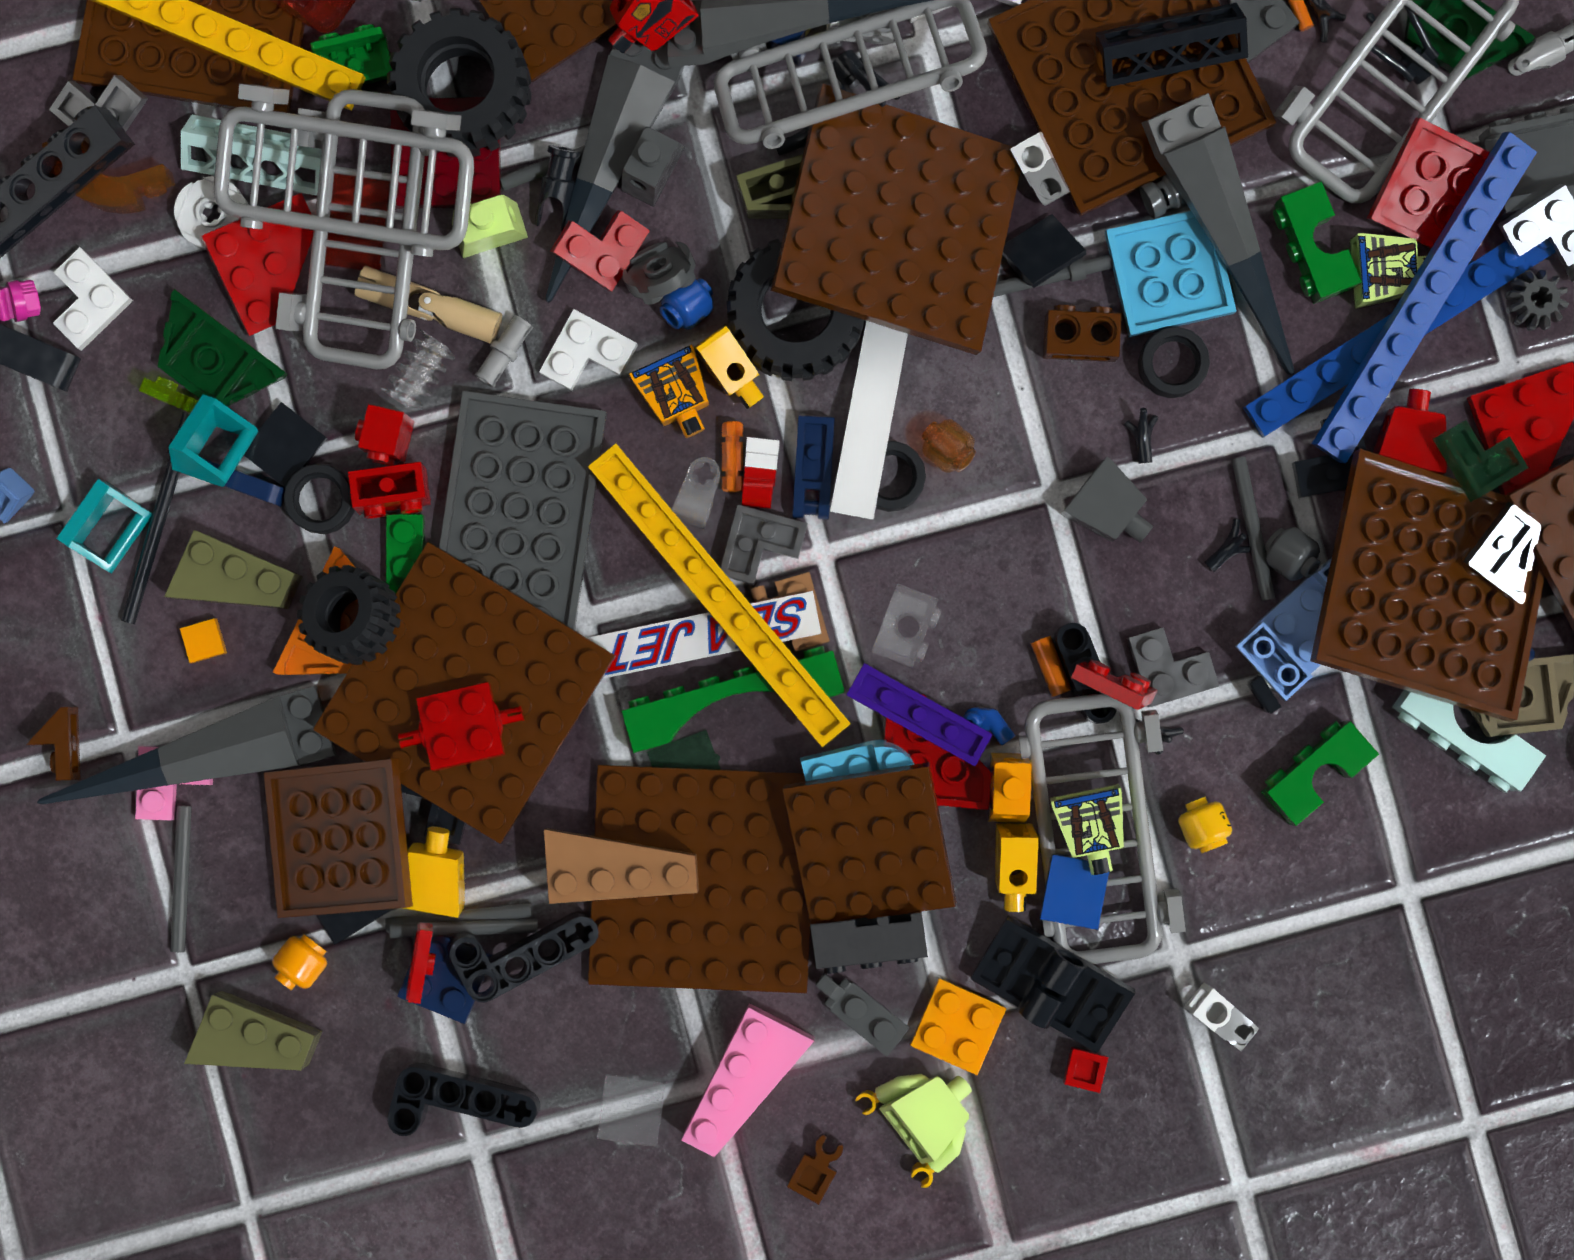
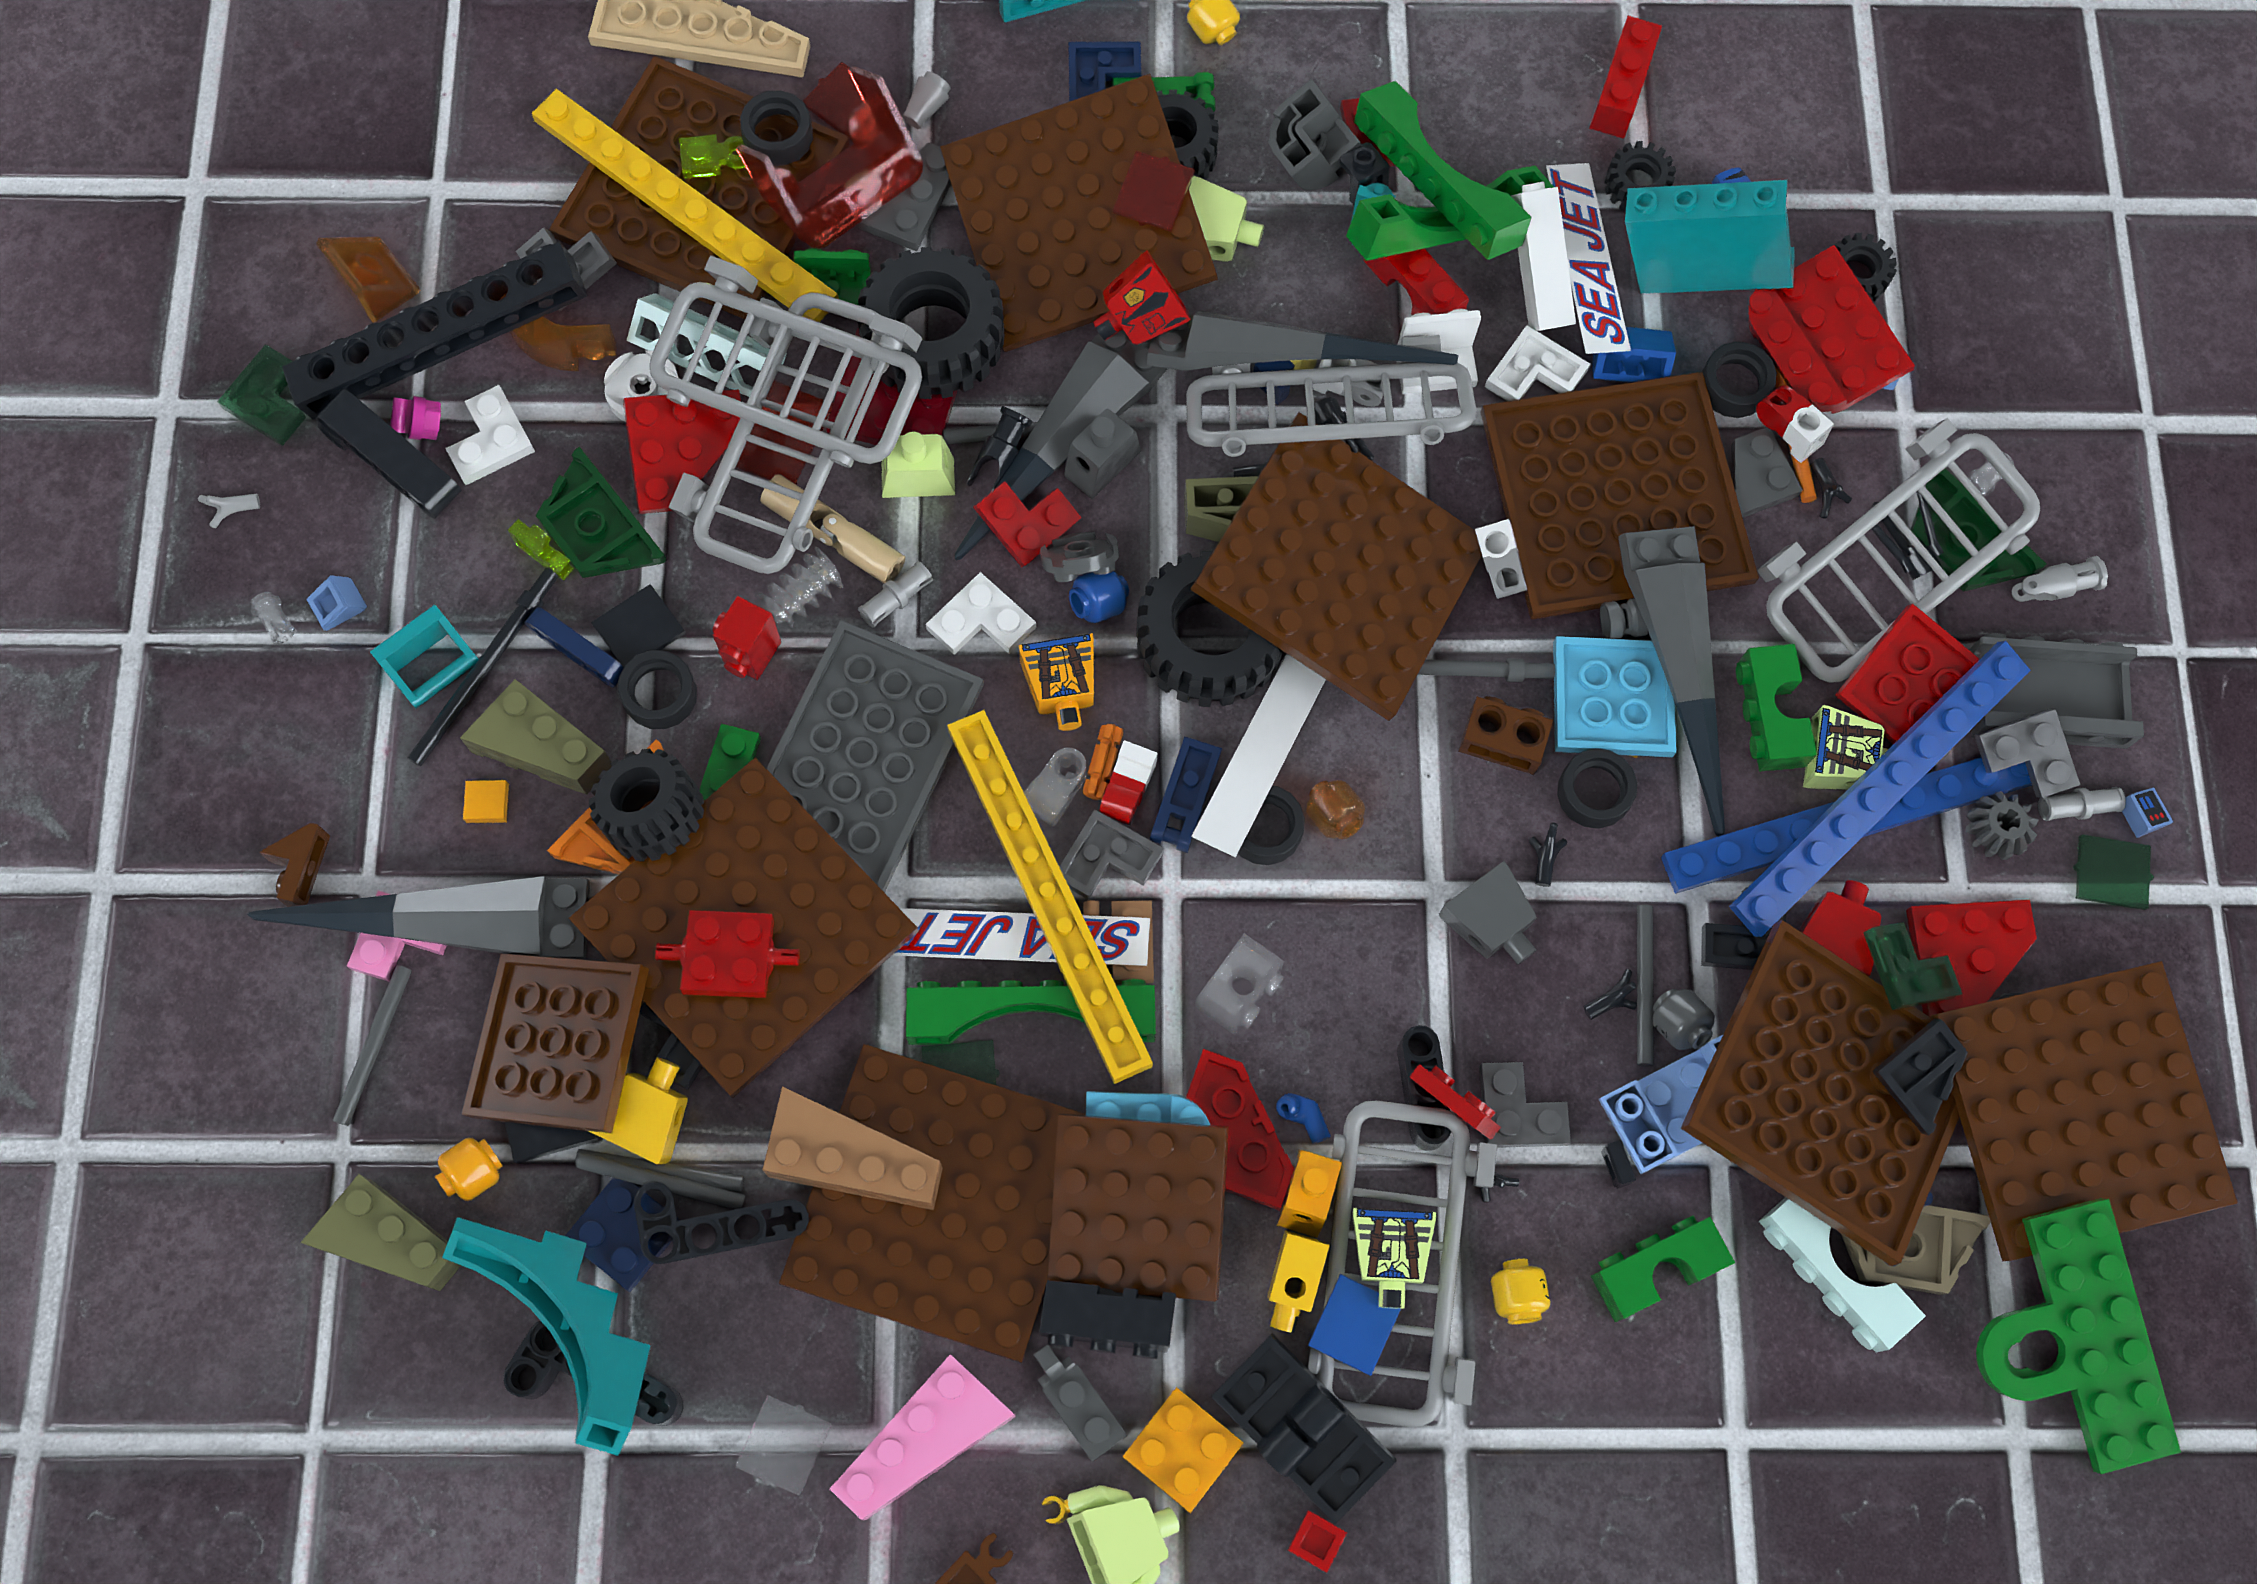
camera: 10 degrees right, 15 degrees down
(196, 431) = (552, 584): teal tile -> none
(389, 489) = (732, 695): red brick -> none
(421, 962) = (601, 1201): red plate -> none
(436, 1062) = (578, 1315): none -> teal arch
(717, 354) = (1120, 649): yellow torso -> none
(919, 714) = (1231, 1080): dark purple plate -> none
(1042, 251) = (1483, 640): black piece -> none
(1051, 666) = (1389, 1070): orange hinge -> none
(1170, 32) = (1668, 459): black fence -> none
(1221, 1016) = (1490, 1522): leg -> none

